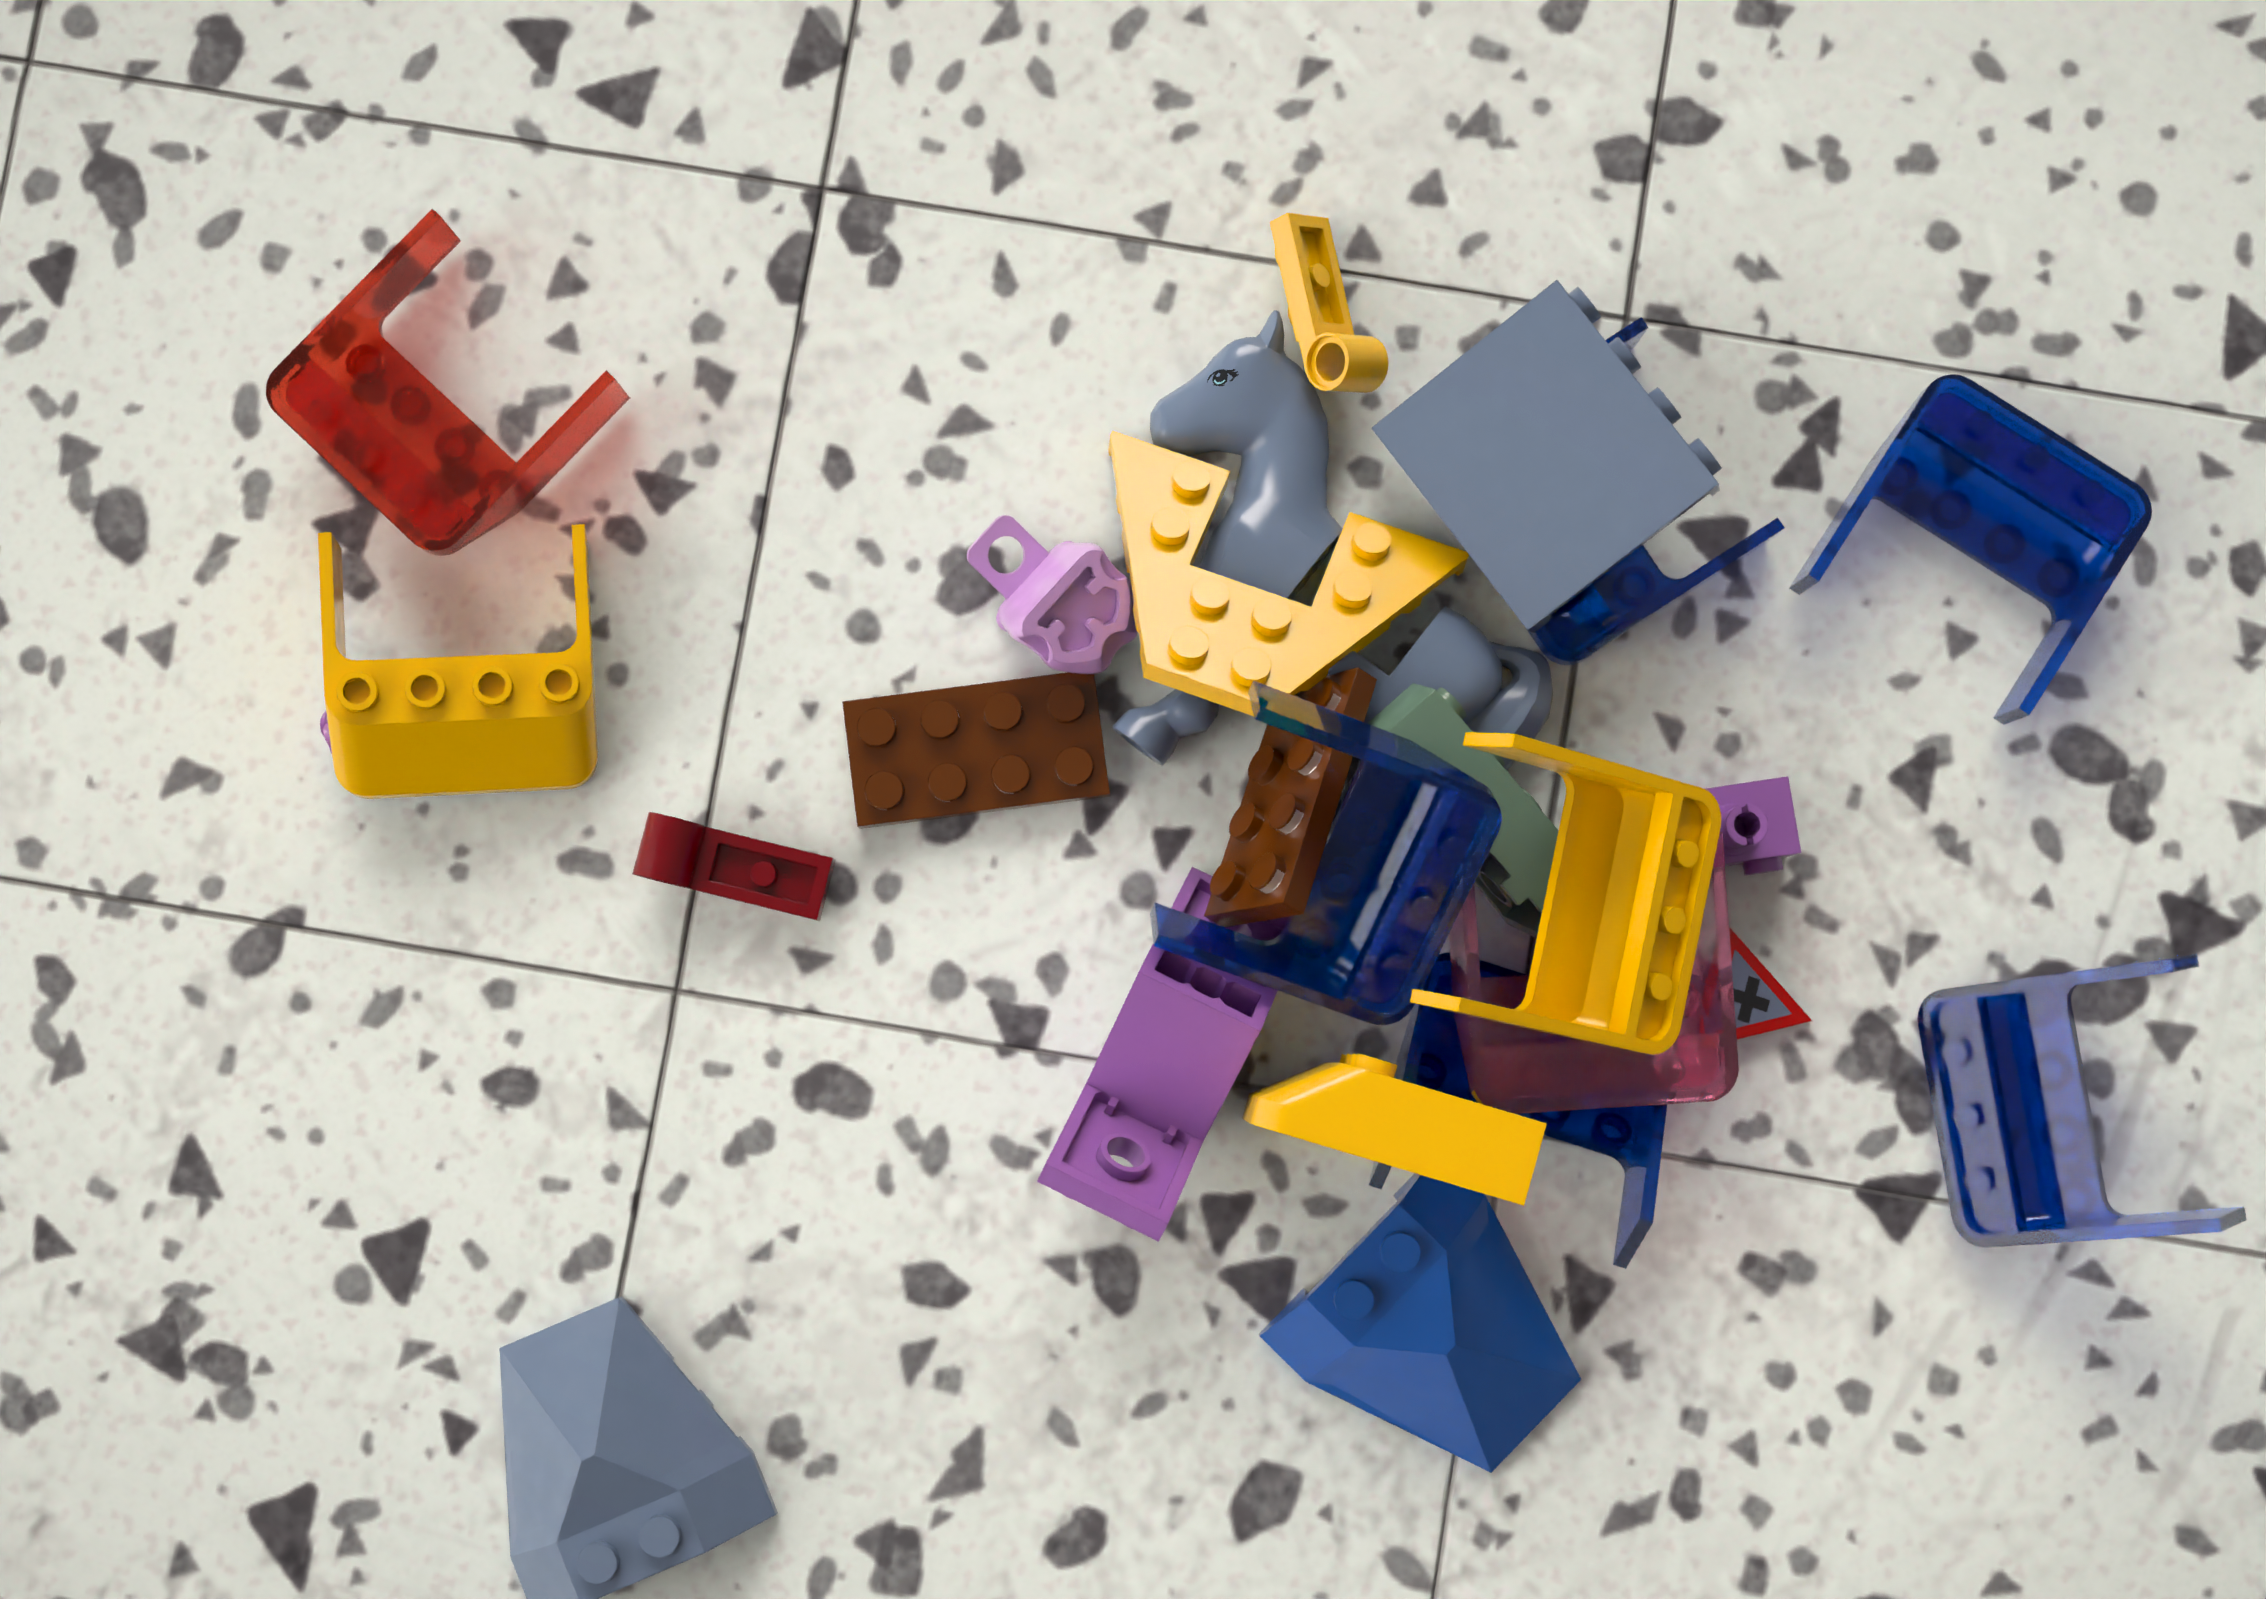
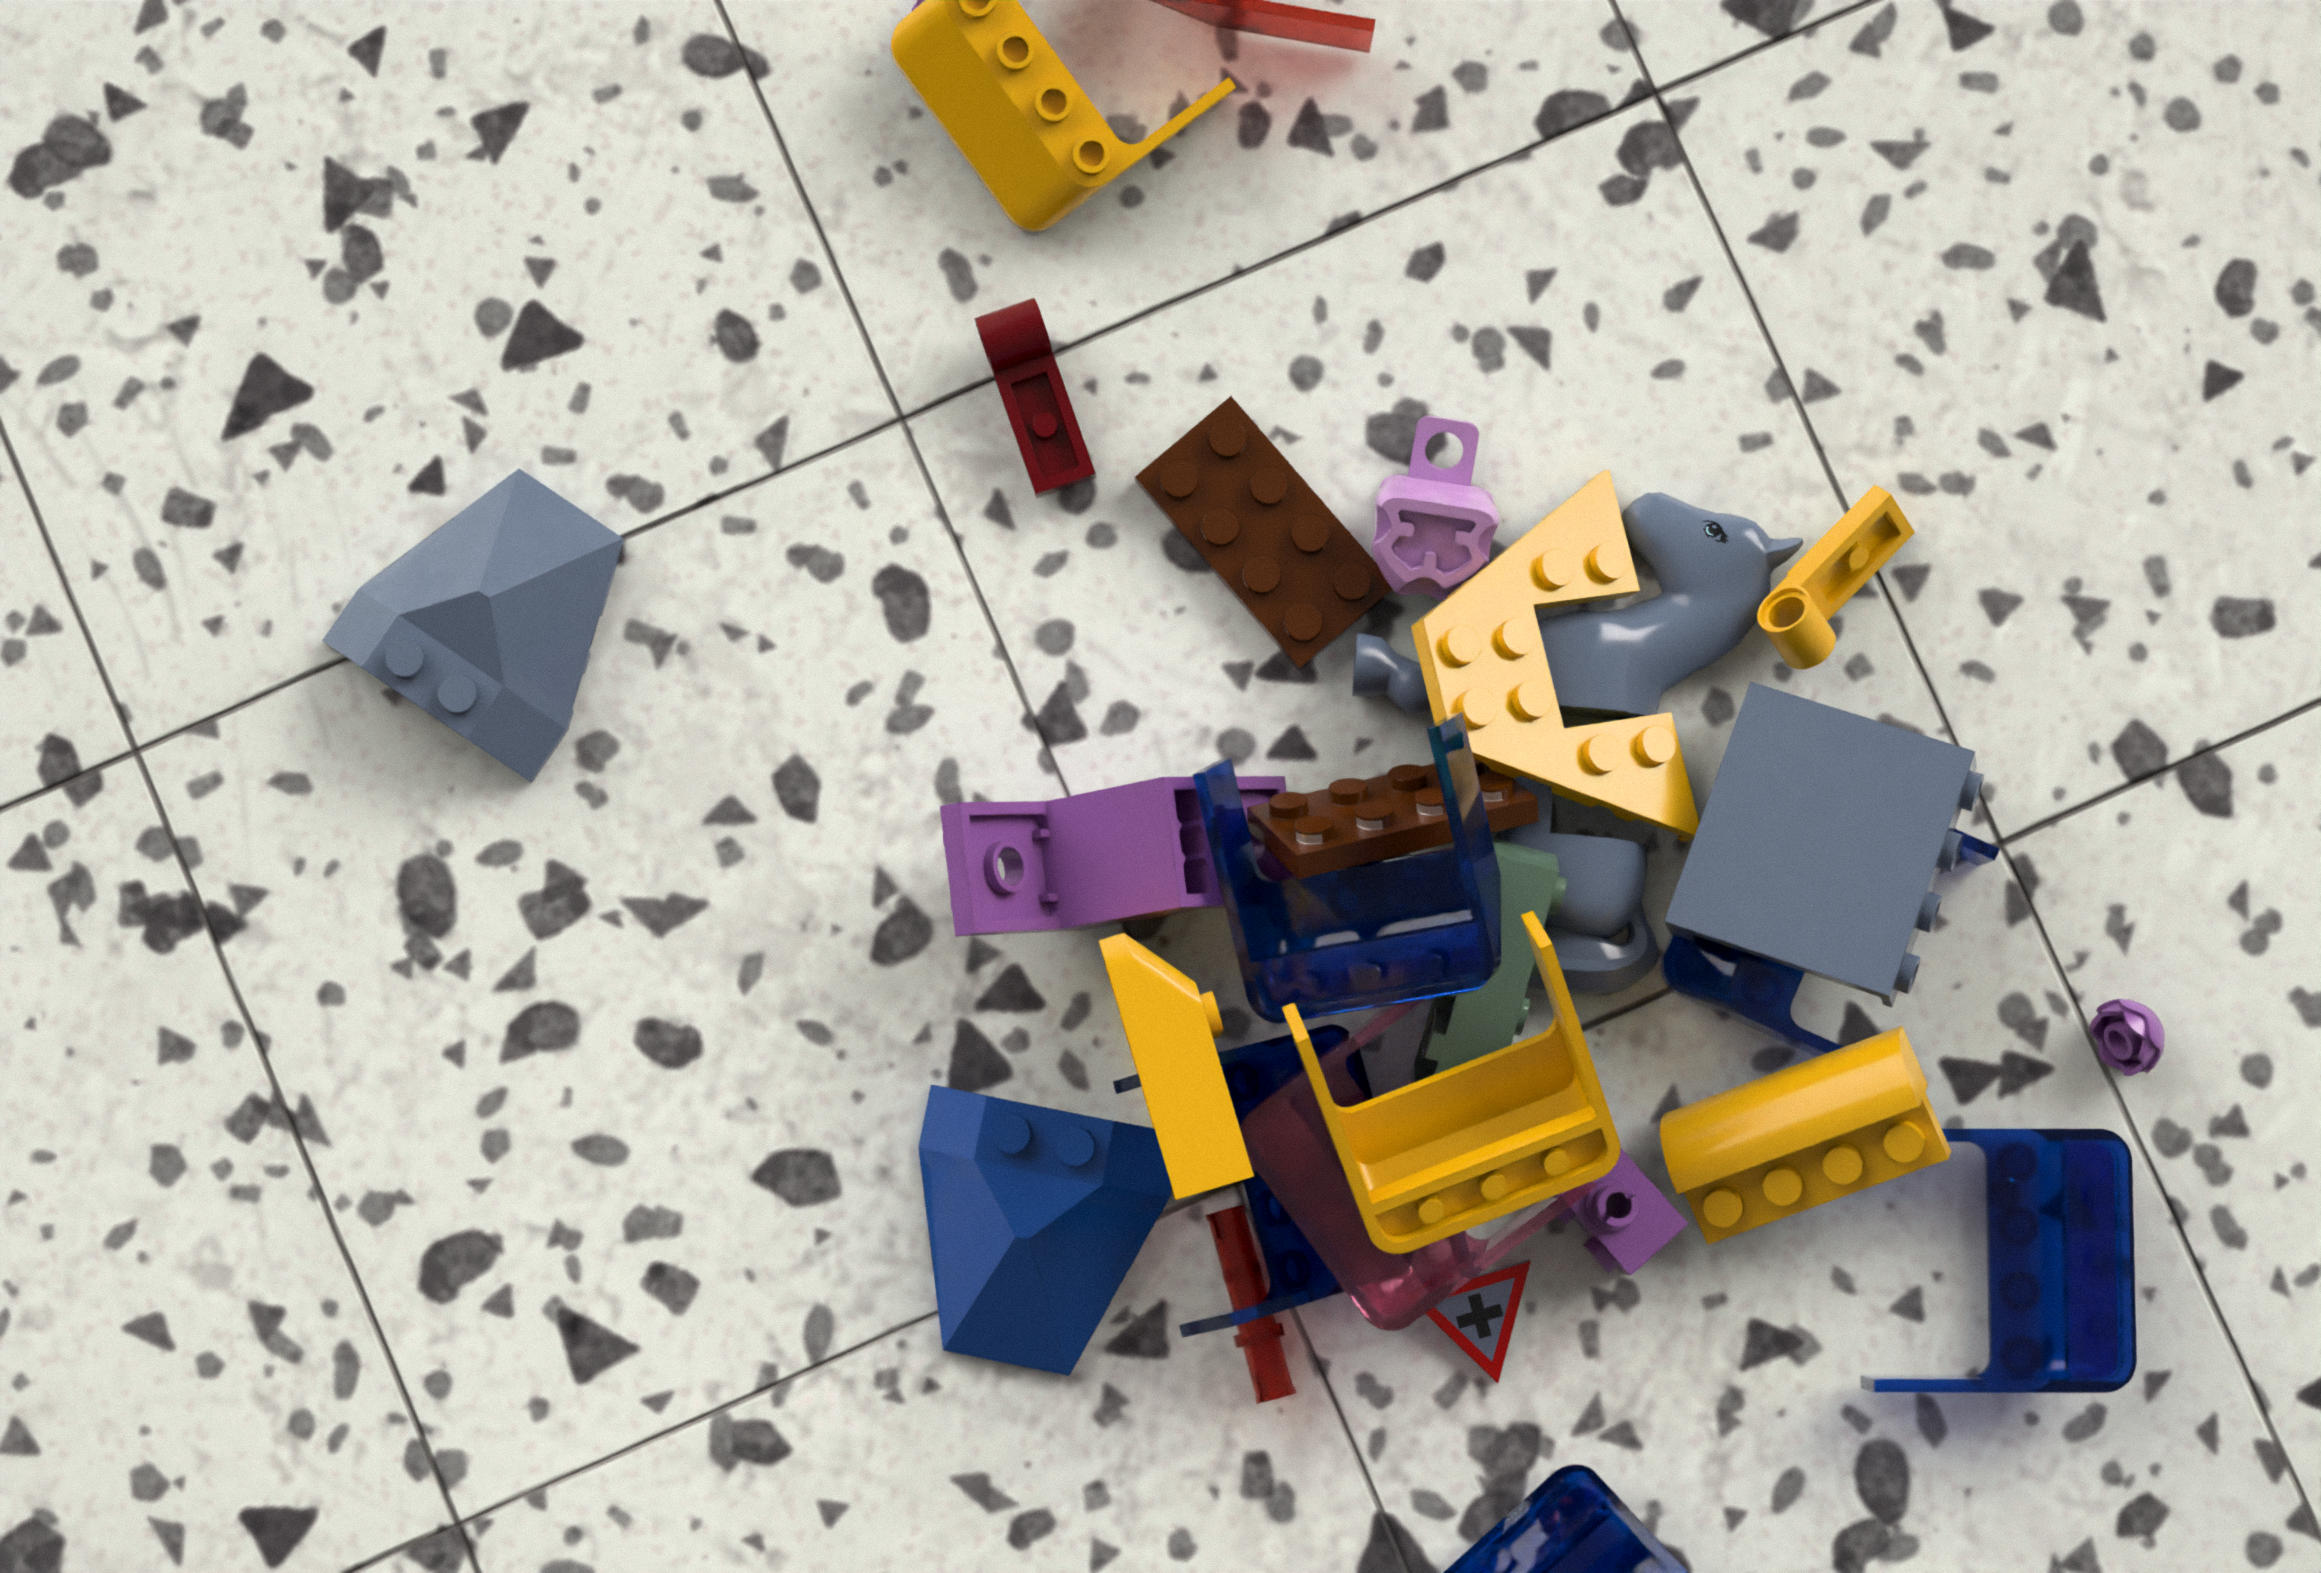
camera: 55 degrees right, 0 degrees up
(1606, 1180) = (1246, 1285): none -> clear red pin
(1777, 633) = (1803, 1136): none -> yellow brick
(1855, 318) = (2128, 1036): none -> medium lavender plate

